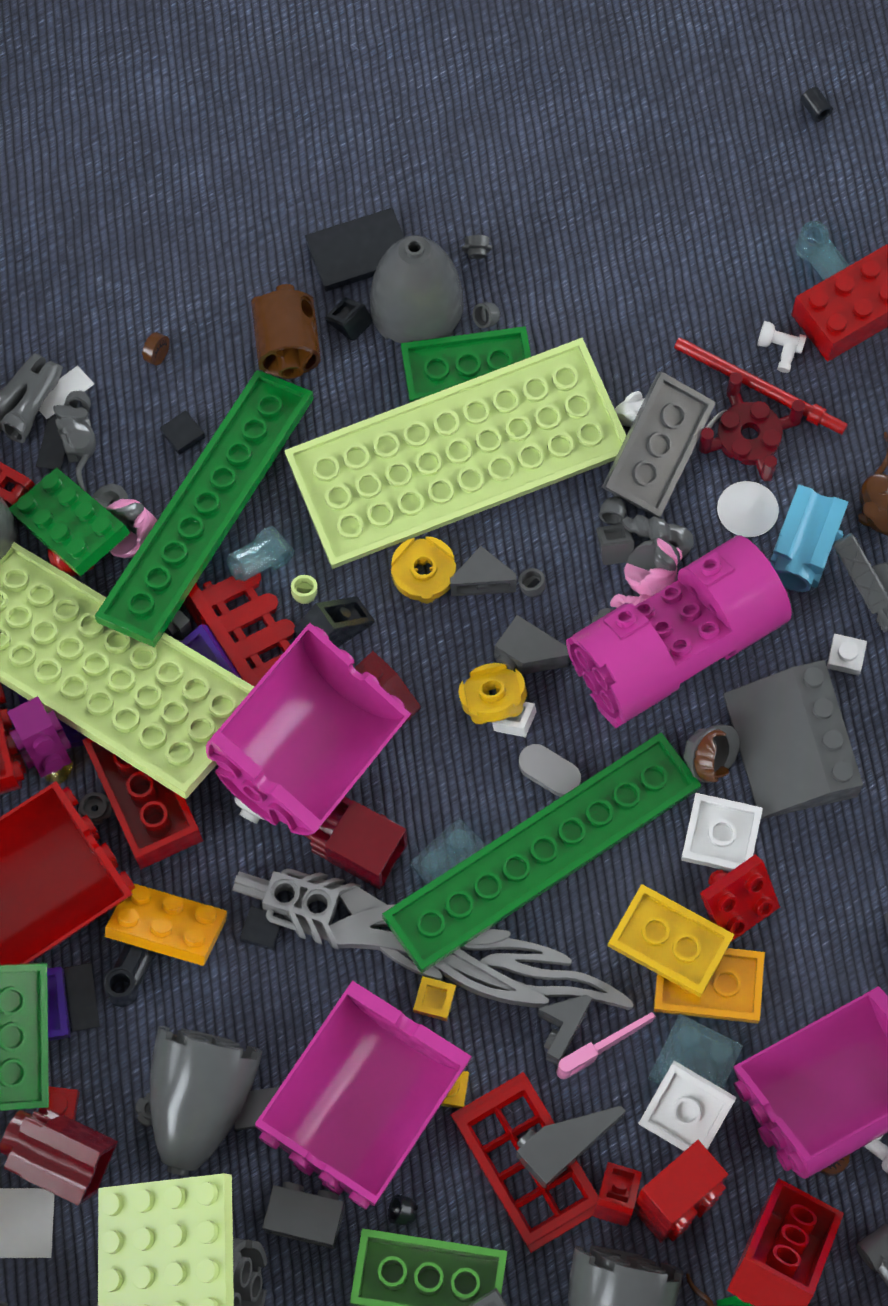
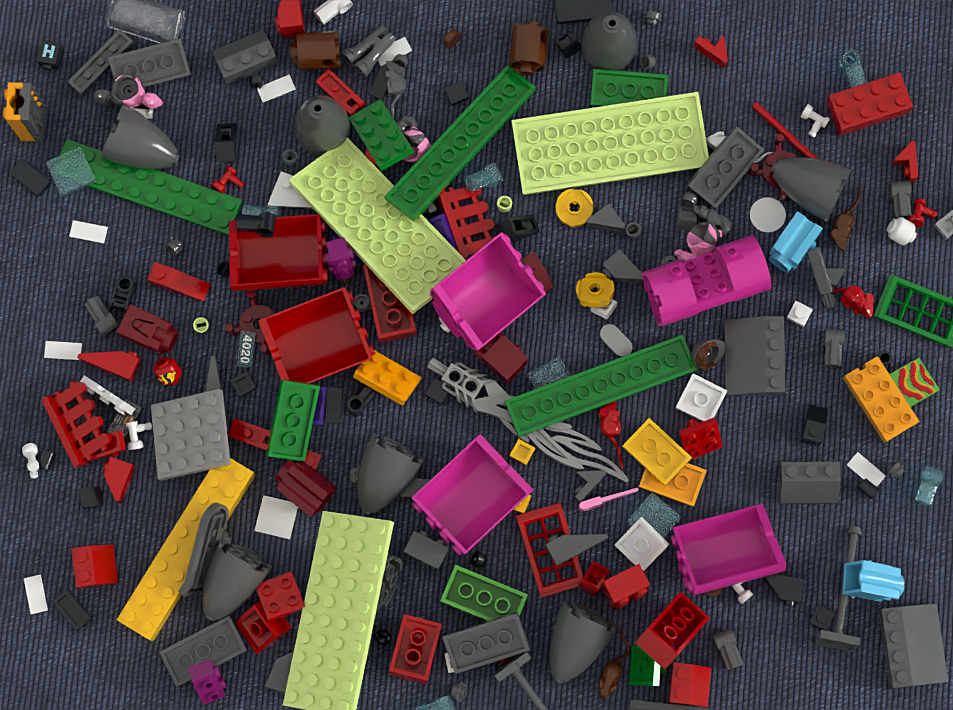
camera: 15 degrees right, 10 degrees up
(578, 914) = (611, 425): none -> red animal
(591, 277) = (715, 53): none -> red slope
(809, 436) = (811, 183): none -> dark grey cylinder

